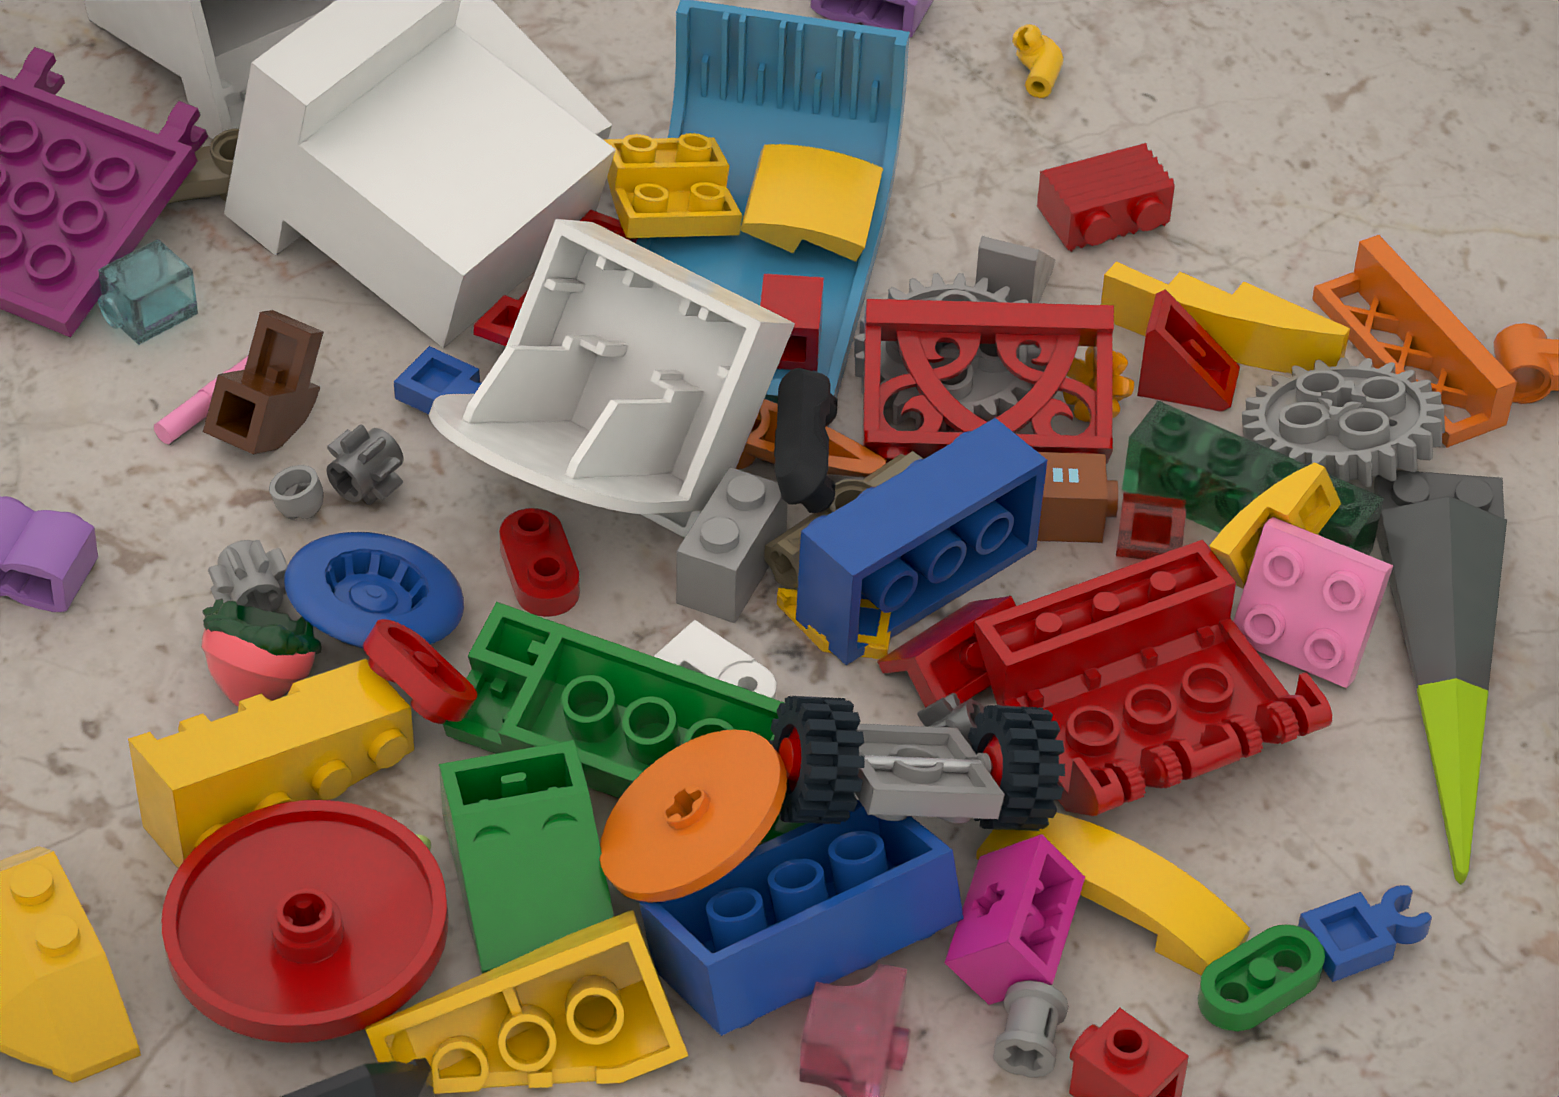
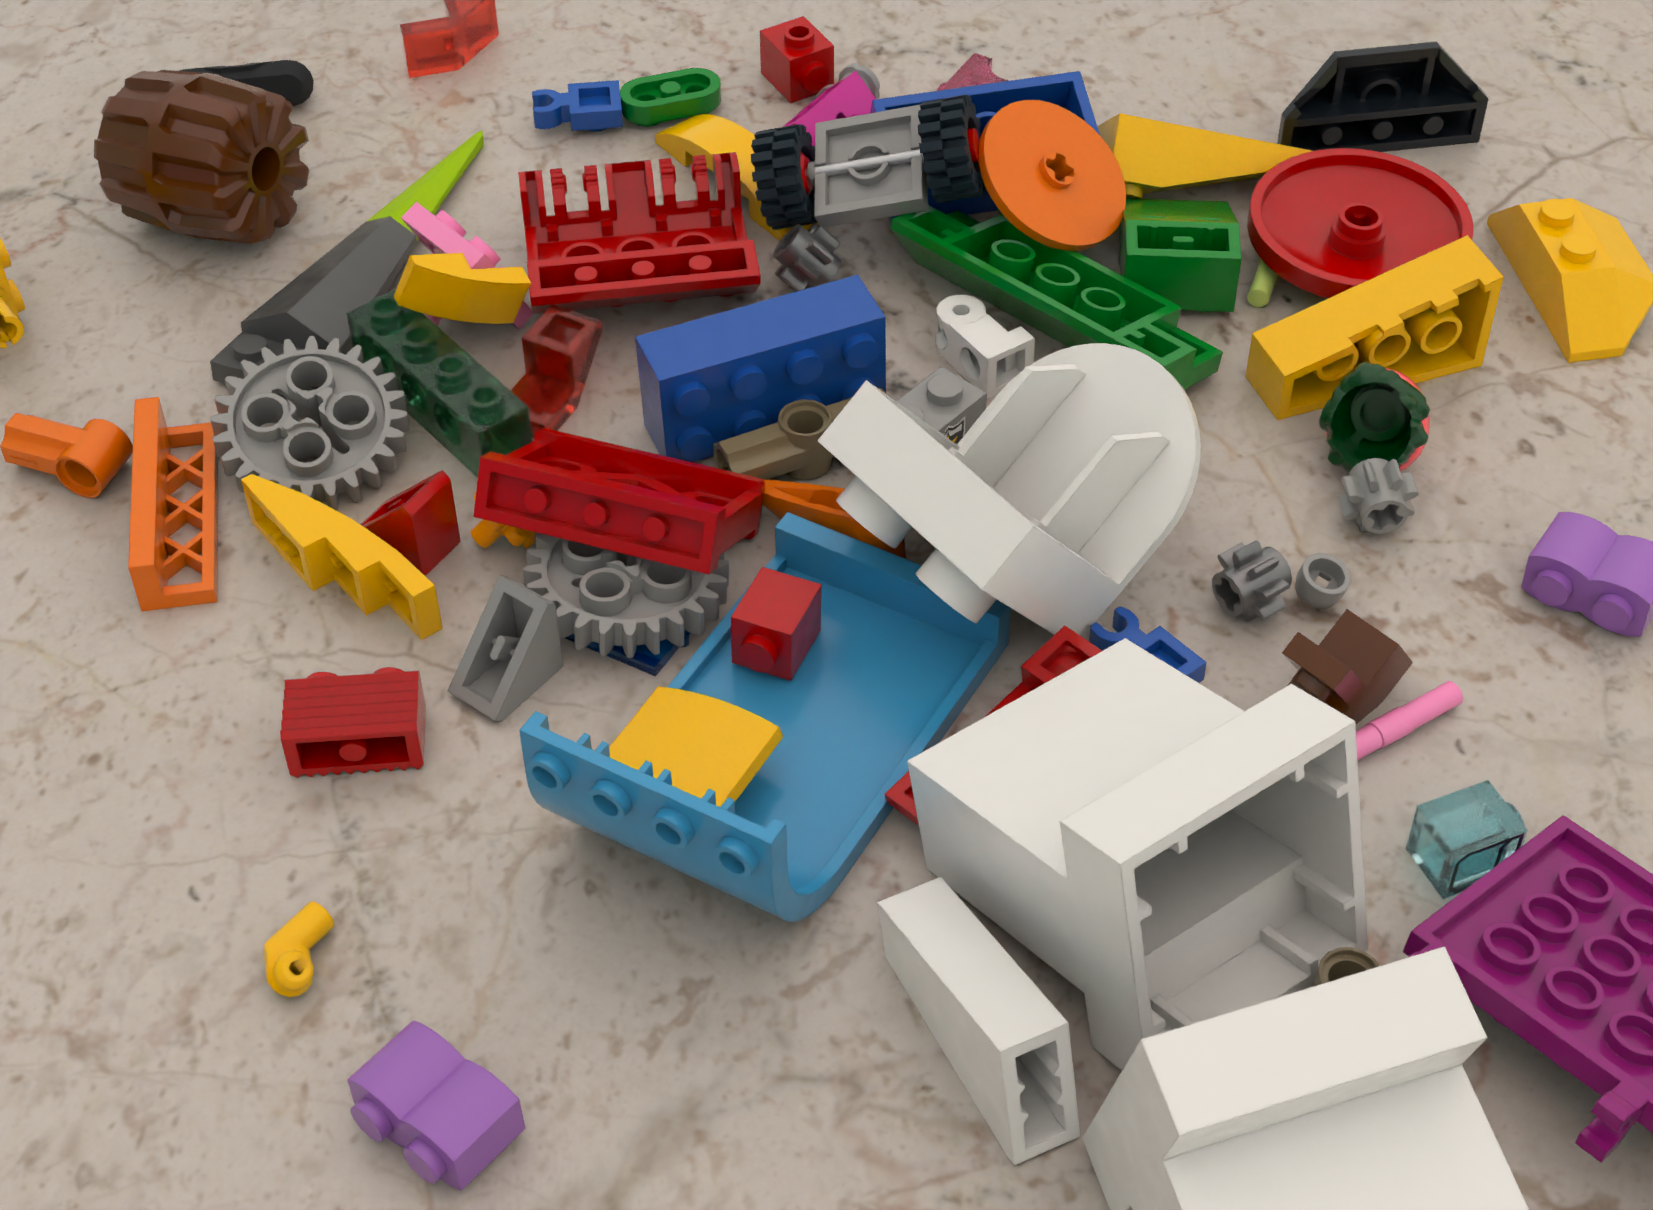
camera: 160 degrees left, 0 degrees up
(362, 577) = (1266, 470): blue wheel -> none
(423, 673) = (1241, 346): red plate -> none
(672, 187) = (842, 807): yellow slope -> none
(802, 440) = (814, 471): black piece -> none
(1076, 498) = (602, 412): dark orange brick -> none

